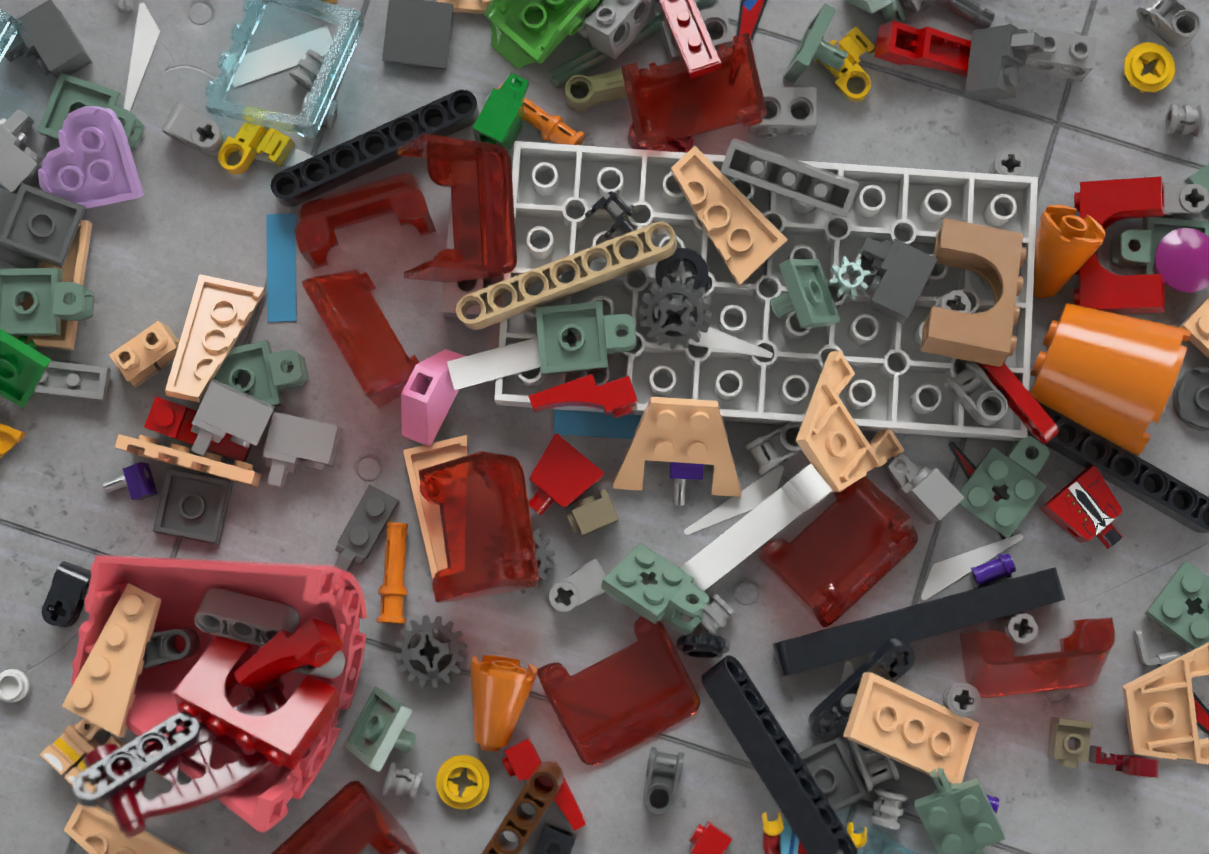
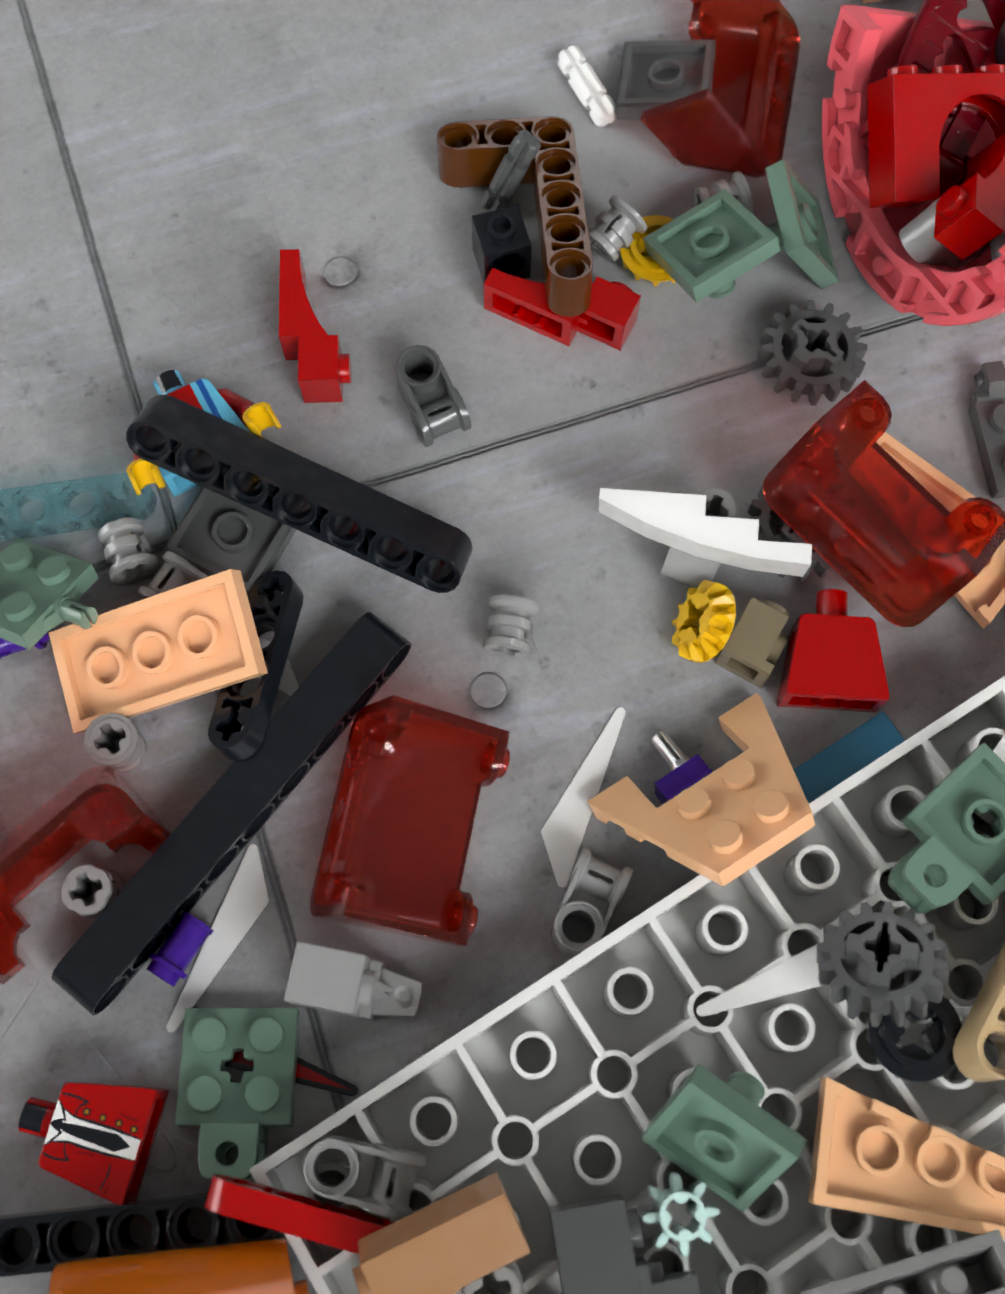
camera: 145 degrees right, 10 degrees down
(393, 589) = (913, 389): orange pin -> none
(443, 751) = (711, 246): none -> sand green tile
(485, 814) = (615, 229): none -> light grey bush
(498, 698) = (697, 355): orange cone -> none
(592, 595) = (682, 524): none -> white slope
(612, 397) = (867, 779): red slope -> none
(619, 534) = (715, 624): none -> yellow gear
(622, 696) = (553, 452): clear red windscreen -> none
(666, 598) = (585, 593): sand green plate -> none
(703, 645) = (497, 575): black gear -> none
(756, 527) = (536, 780): white beam -> none
(833, 438) = (528, 947): light nougat wing -> none

